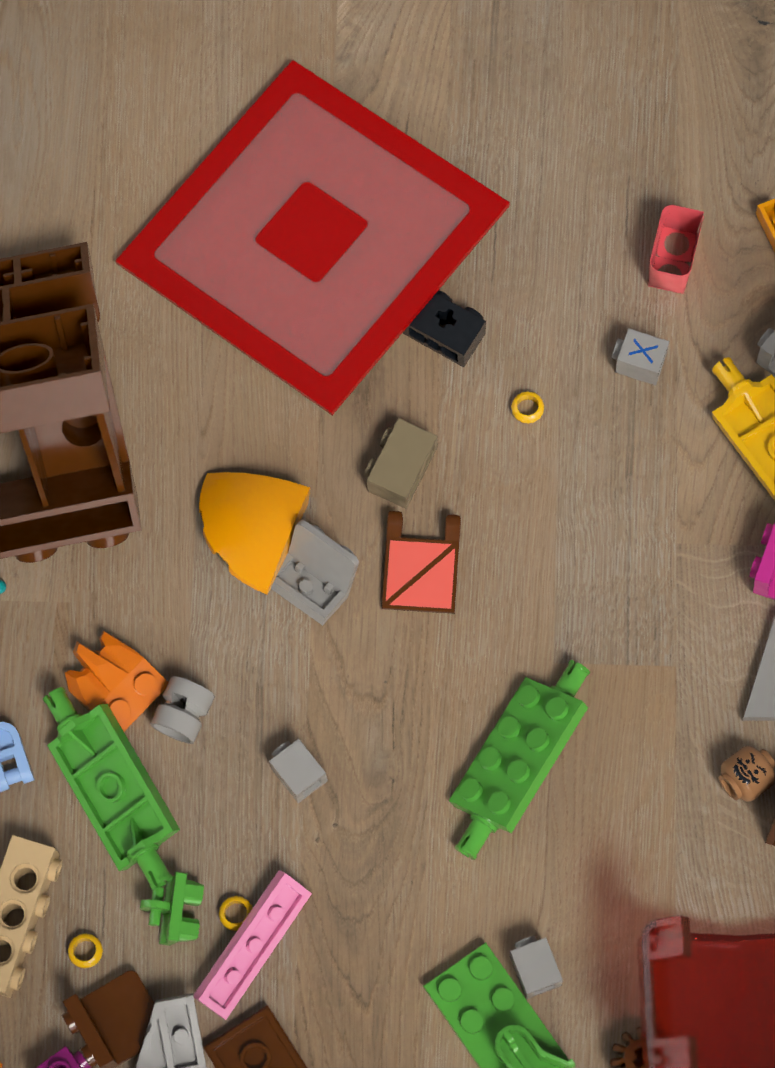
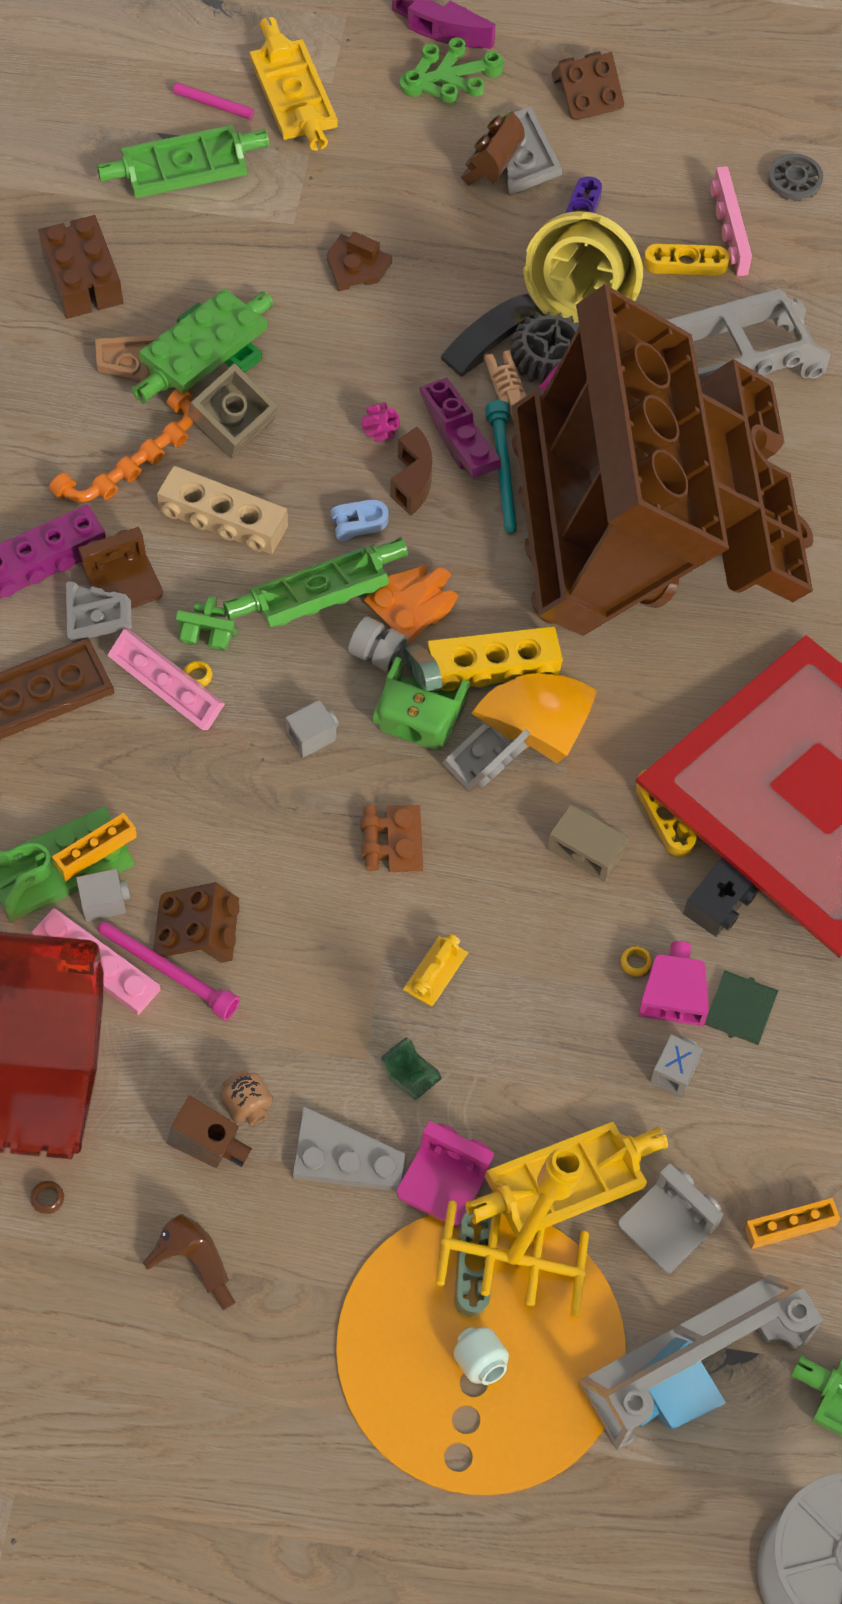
camera: 90 degrees right, 10 degrees down
(78, 939) = (186, 554): yellow piece -> none
(165, 532) = (505, 647): none -> yellow brick
(217, 651) = (422, 667): none -> sand green beam
(255, 654) = (416, 714): none -> bright green piece
(378, 387) = (665, 826): none -> yellow beam
(418, 657) = (404, 838): none -> dark orange plate
(420, 572) = (486, 850): coral flag -> none
(485, 981) = (94, 846): none -> light orange piece
(518, 756) = (298, 906): bright green plate -> none
(554, 861) = (197, 920): none -> reddish brown bracket
(555, 363) = (676, 988): none -> dark pink torso
(562, 303) = (741, 1007): none -> clear green piece
(569, 604) = (436, 970): none -> yellow hinge
(608, 965) = (120, 977): none -> bright pink plate
(640, 819) = (222, 1002): none -> dark pink piece
(674, 220) = (802, 1099): coral piece -> none
(689, 613) = (409, 1069): none -> clear green bracket

